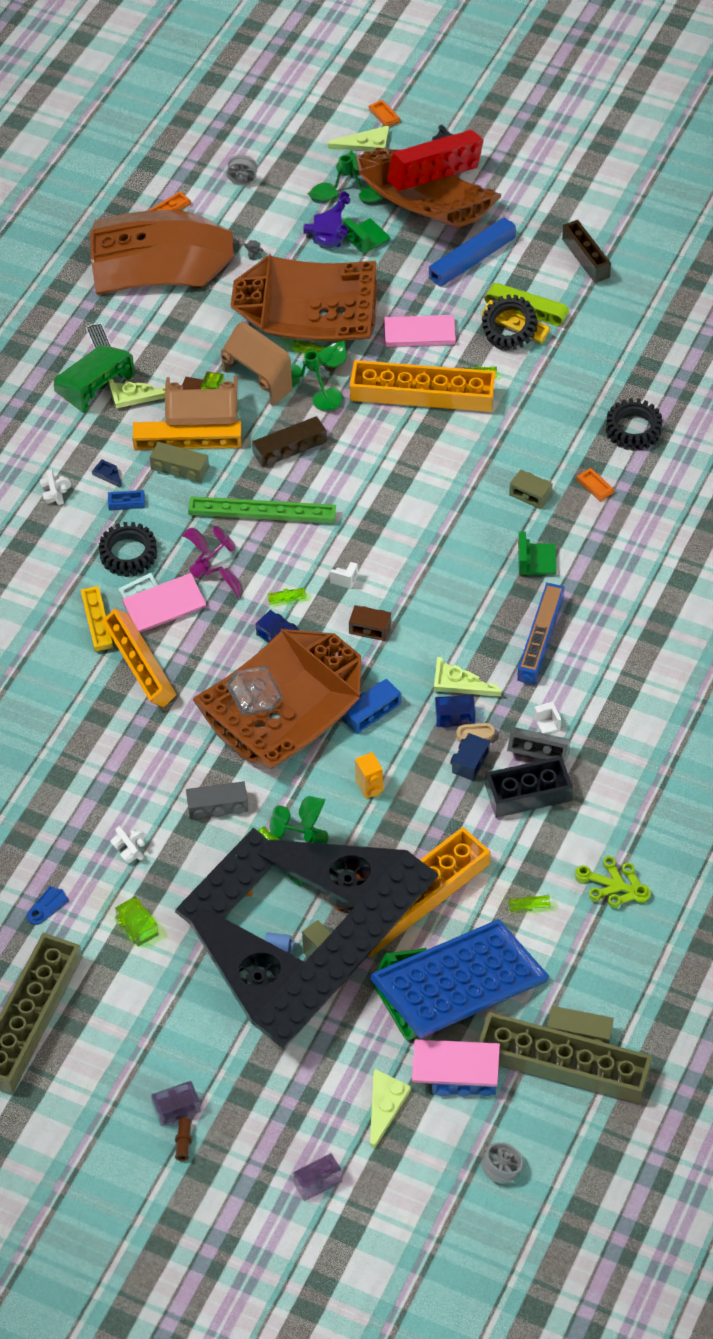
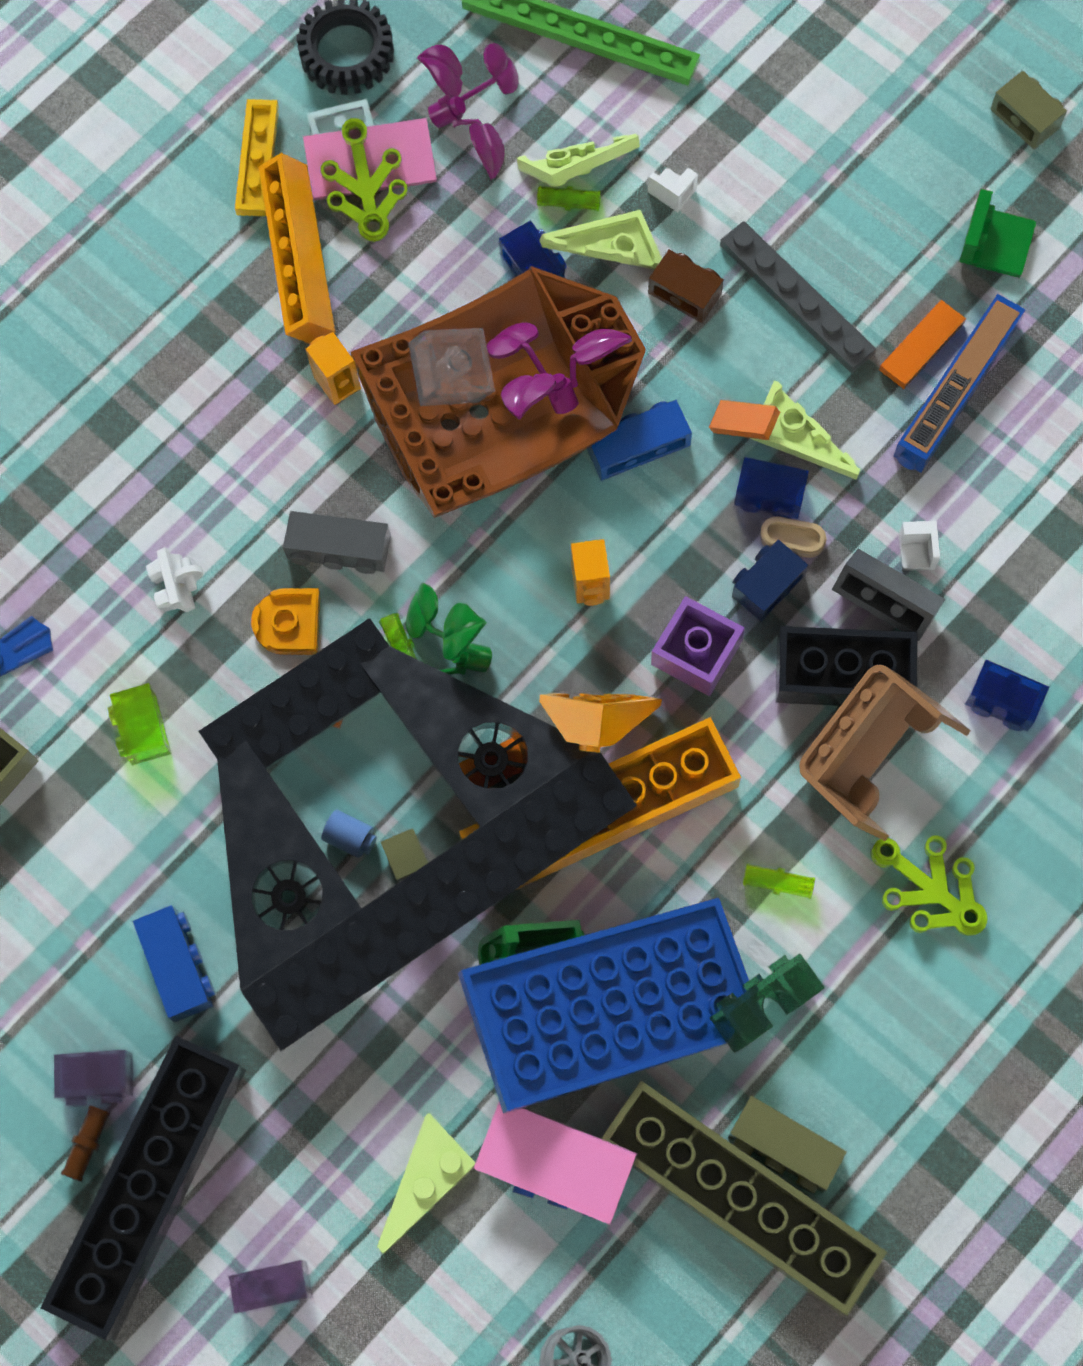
camera: 20 degrees right, 20 degrees up
(166, 616) = (365, 186): none -> lime plant
(184, 711) = (333, 367): none -> light orange brick
(201, 1035) = (174, 963): none -> blue brick
(202, 849) = (288, 621): none -> light orange tile
(227, 1147) = (143, 1189): none -> black brick
(278, 578) = (575, 160): none -> yellowish green wing
(313, 681) = (528, 390): none -> magenta plant
(322, 608) = (615, 239): none -> yellowish green wing
(400, 835) = (597, 719): none -> light orange wedge
(427, 680) = (744, 419): none -> orange tile
(435, 614) = (797, 297): none -> dark grey plate
(442, 797) = (697, 646): none -> medium lavender brick
(513, 620) = (922, 344): none -> orange tile
(536, 966) = (743, 1017): none -> clear green arch
(551, 813) = (863, 736): none -> medium nougat windscreen
(621, 779) = (1006, 696): none -> clear blue brick

